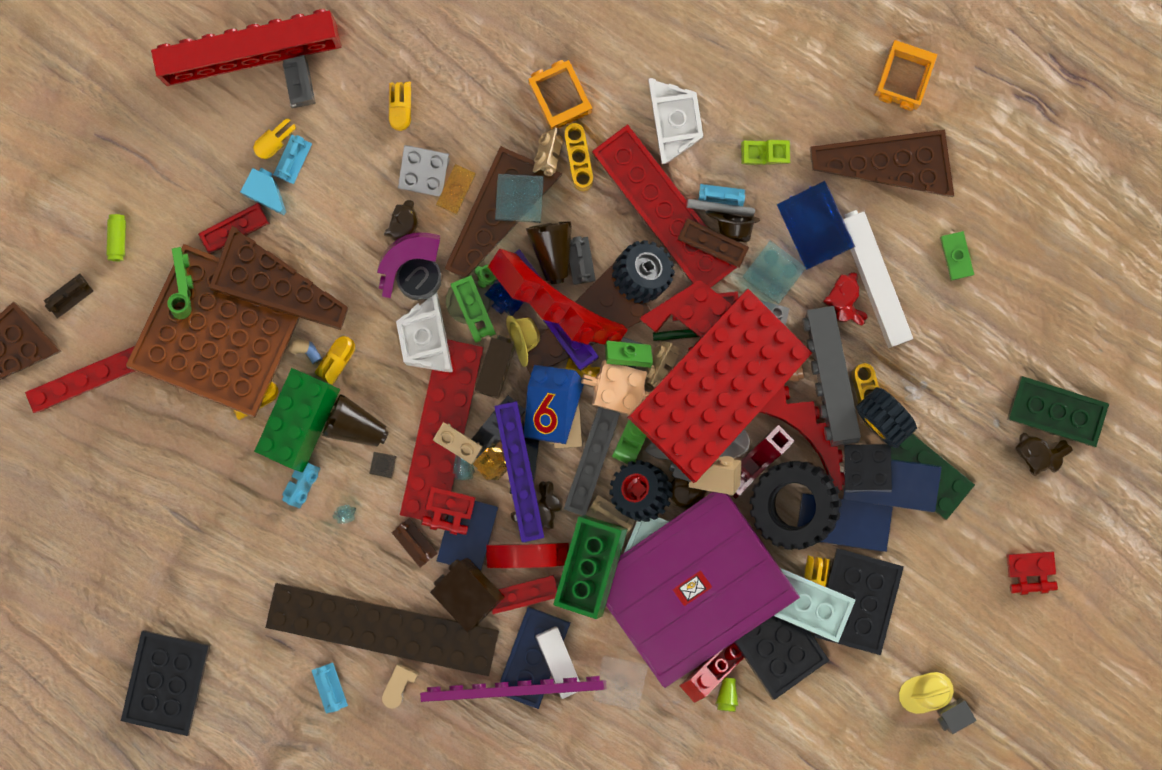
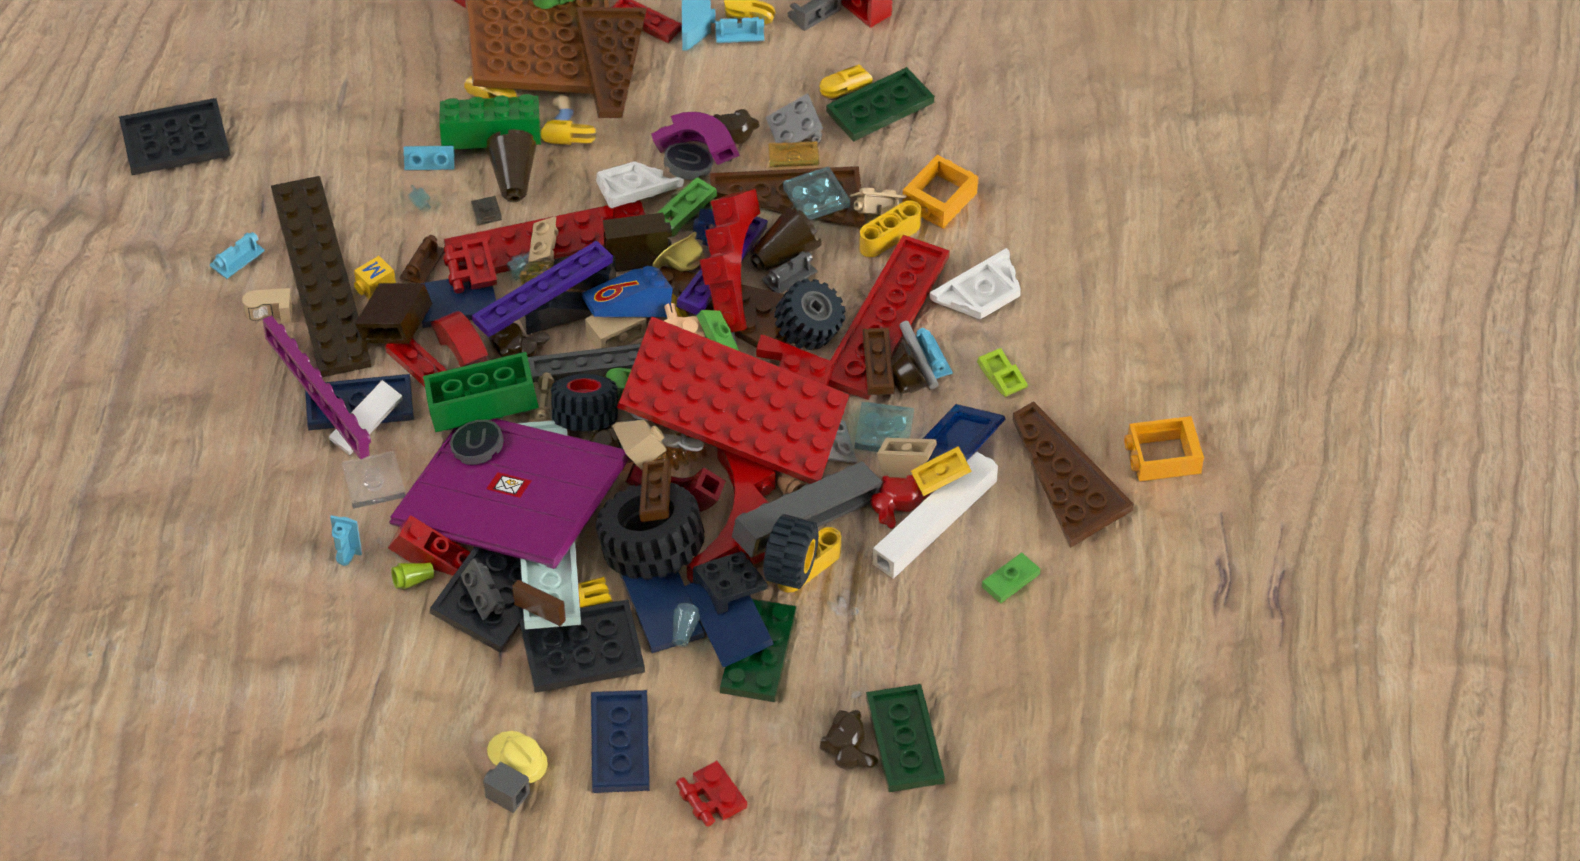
camera: 60 degrees right, 35 degrees down
(415, 591) = (371, 274): none -> yellow brick
(438, 89) = (880, 104): none -> dark green plate
(633, 591) = (476, 442): none -> tile
(678, 735) = (346, 539): none -> medium azure hinge
(776, 488) = (655, 490): none -> reddish brown tile
(791, 653) = (478, 583): none -> dark grey hinge
(822, 274) = (902, 455): none -> tan slope
(835, 626) = (539, 602): none -> reddish brown tile
(856, 259) = (941, 471): none -> yellow plate
(884, 519) = (684, 622): none -> clear light blue cone
(952, 613) = (619, 741): none -> dark blue tile

